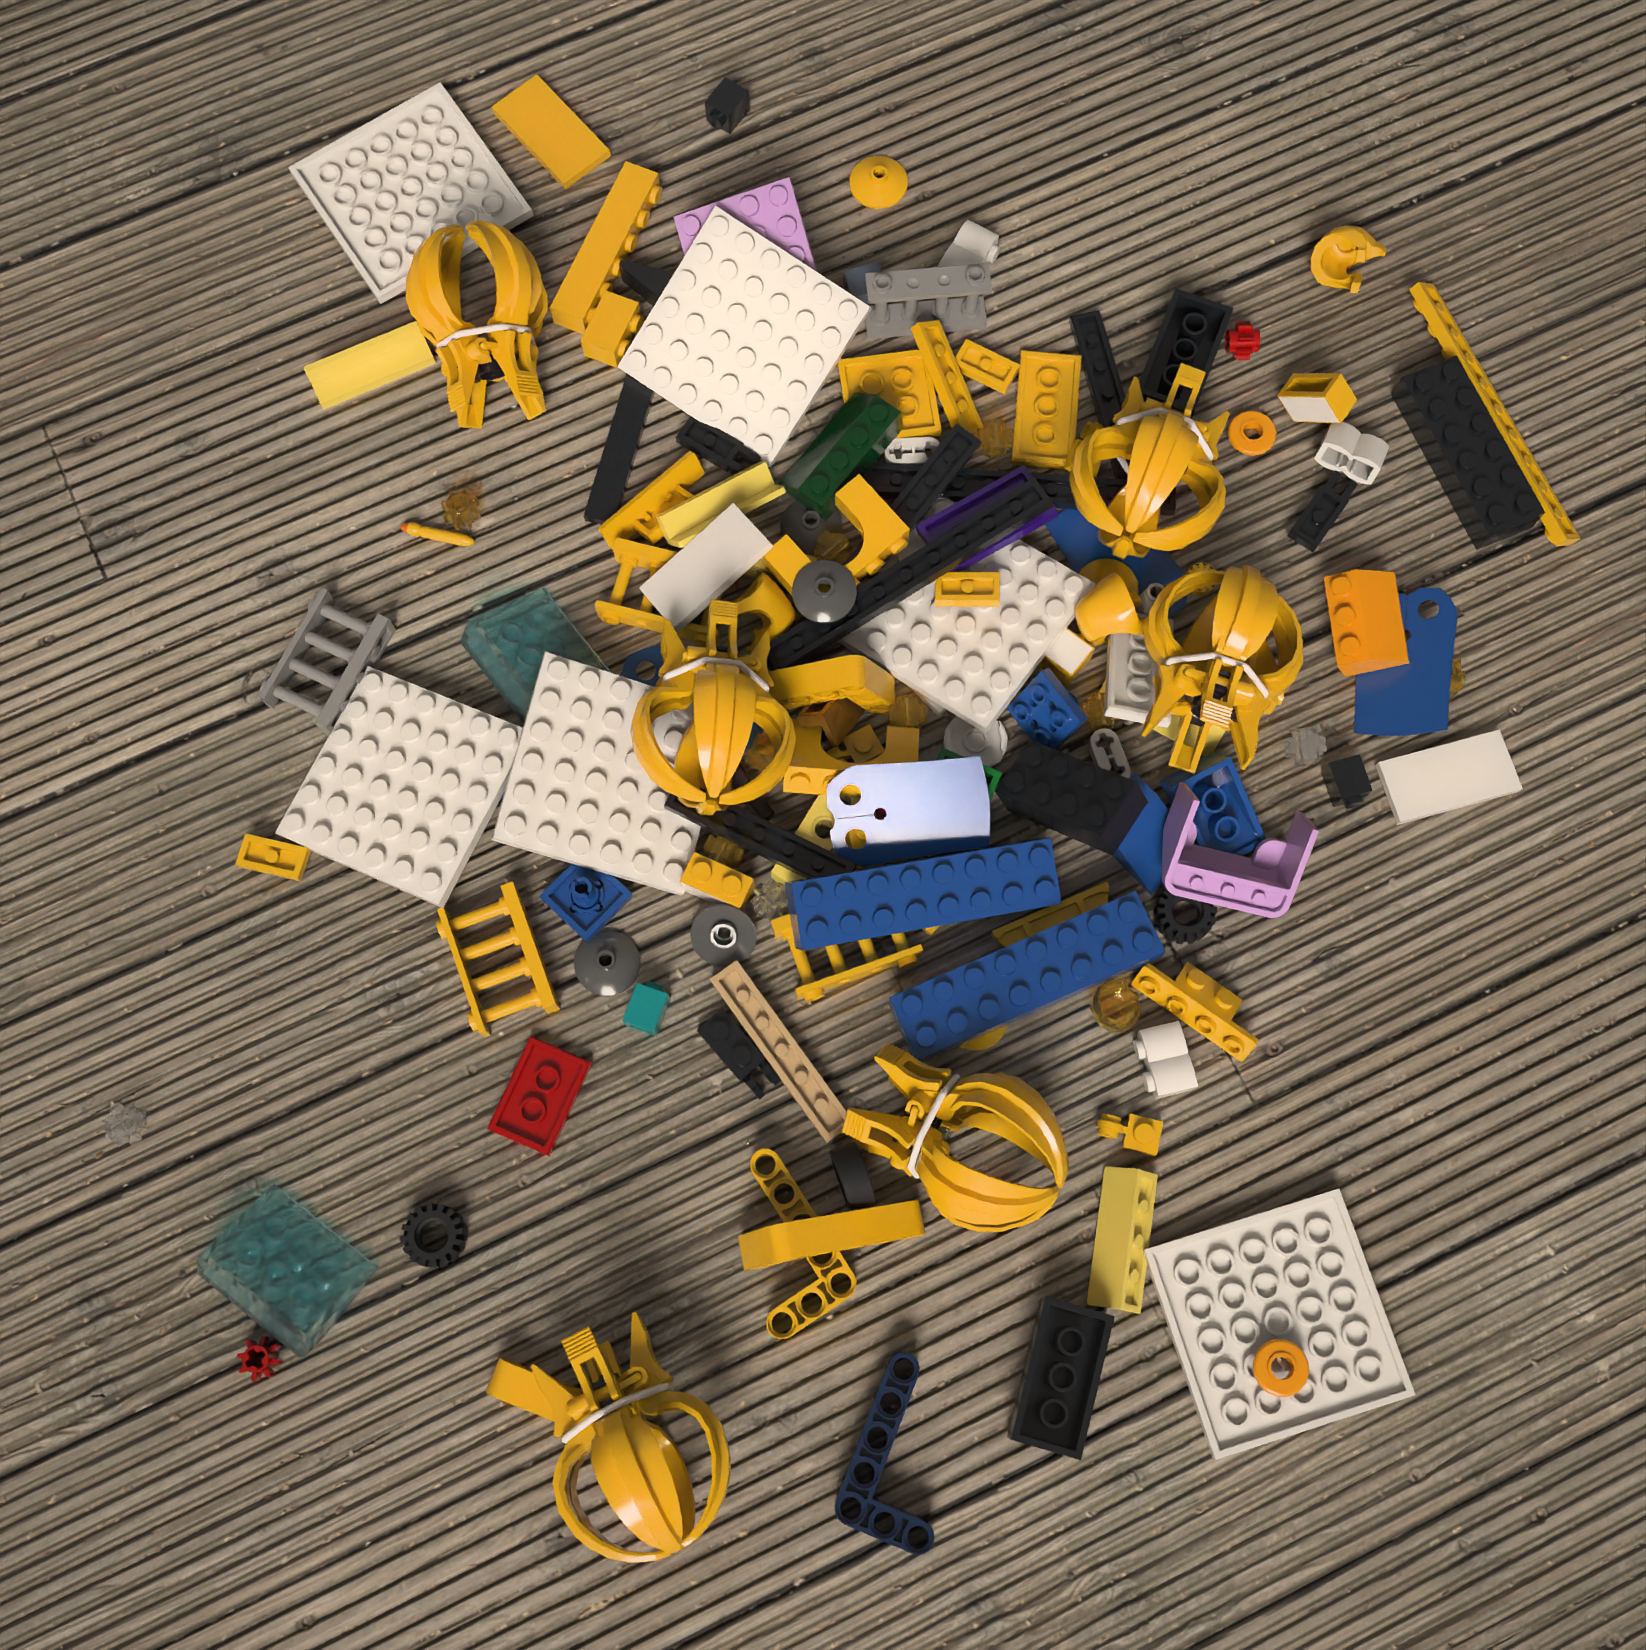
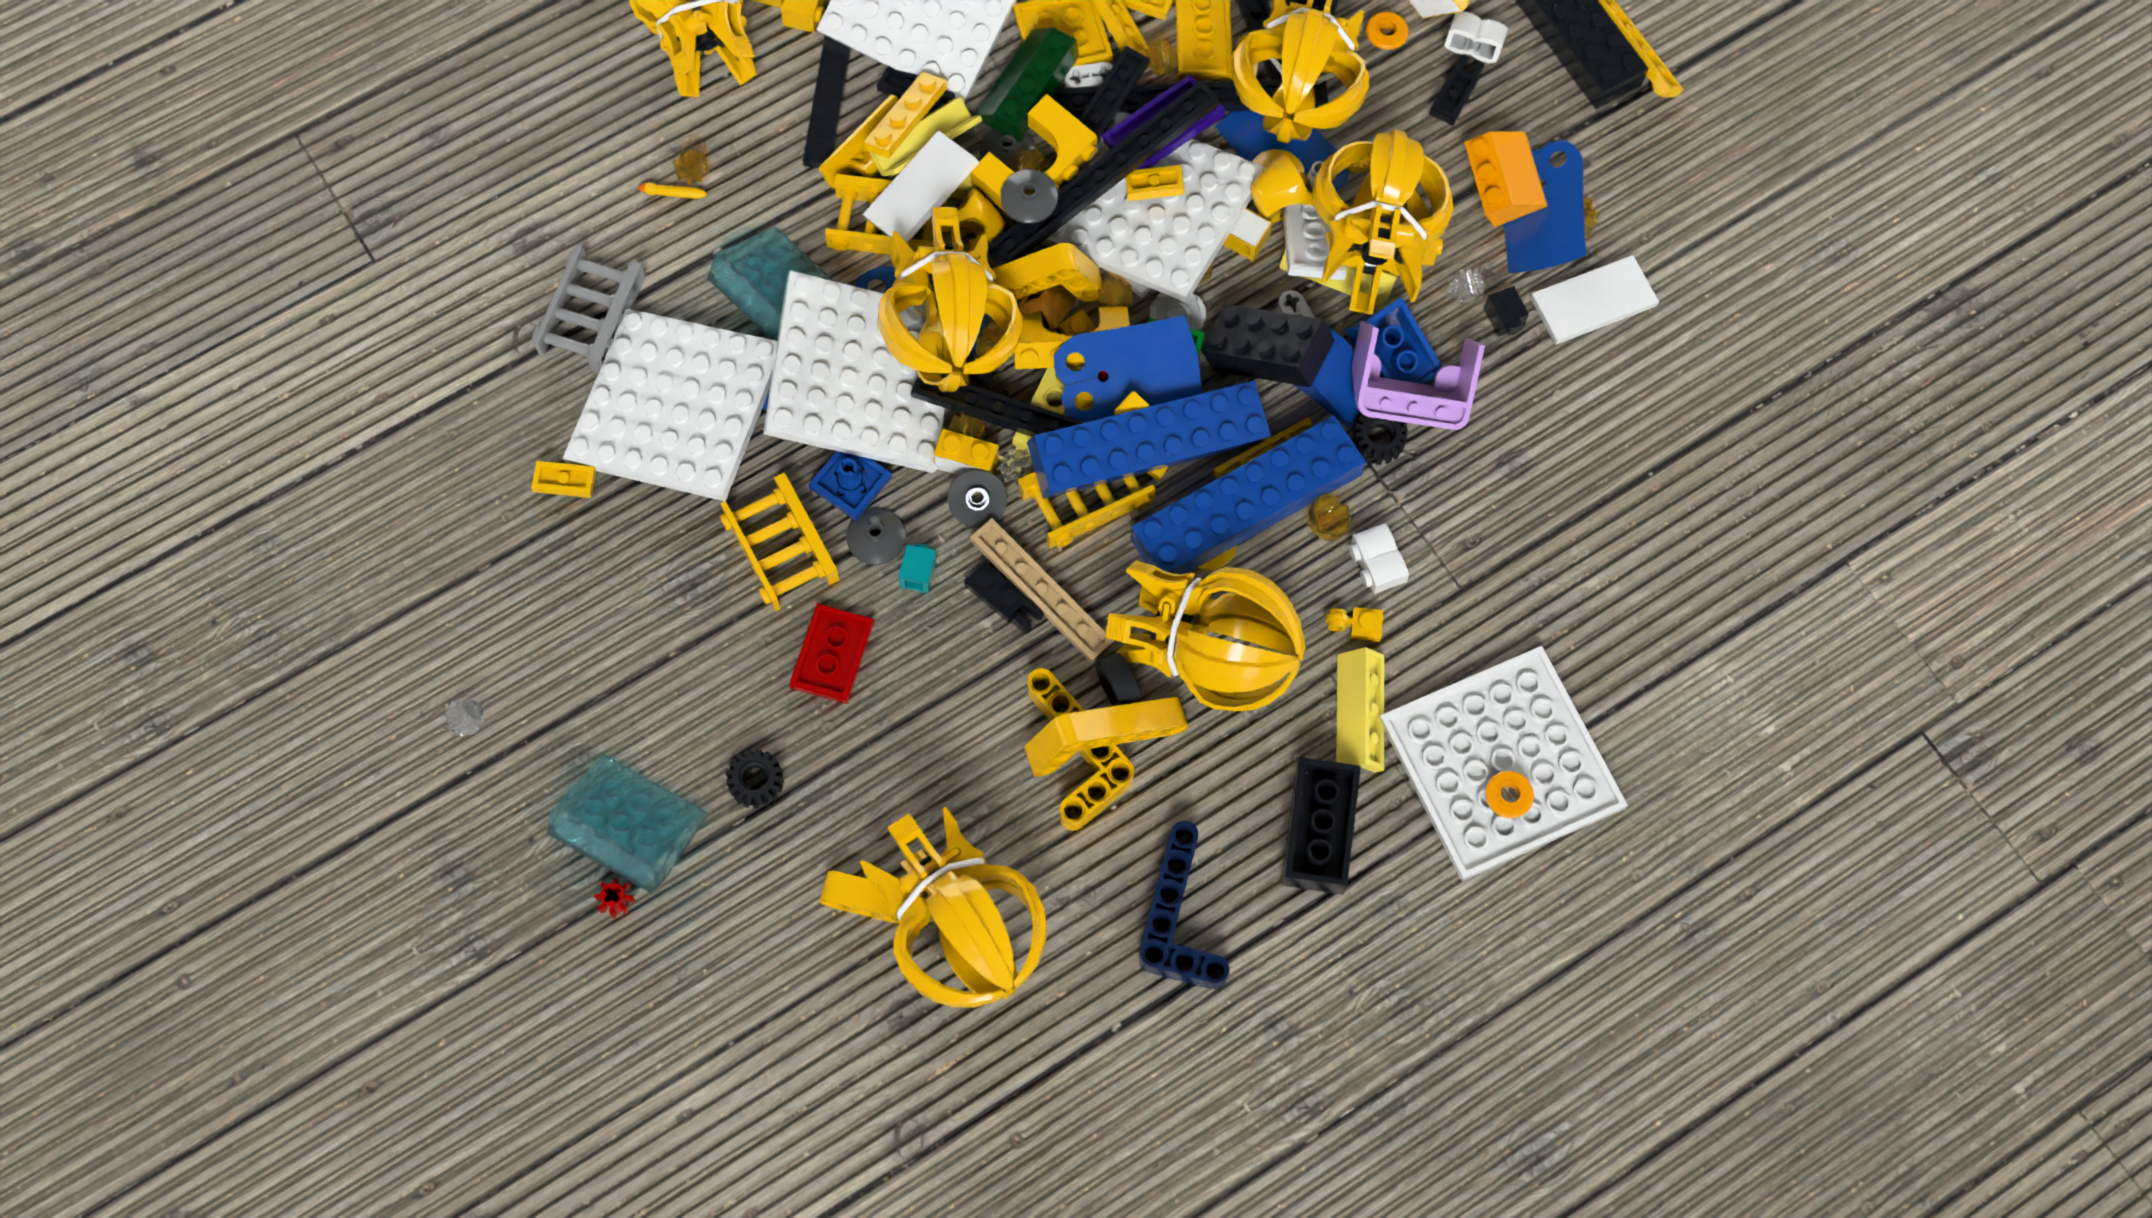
camera: 10 degrees left, 5 degrees down
(369, 365) = (590, 51): light yellow panel -> none
(701, 478) = (905, 115): none -> yellow plate
(907, 851) = (1131, 403): none -> yellow slope
(1052, 710) = (1241, 275): blue plate -> none
(1095, 712) = (1279, 277): clear yellow gear -> none
(1200, 1004) = (1402, 511): yellow bracket -> none

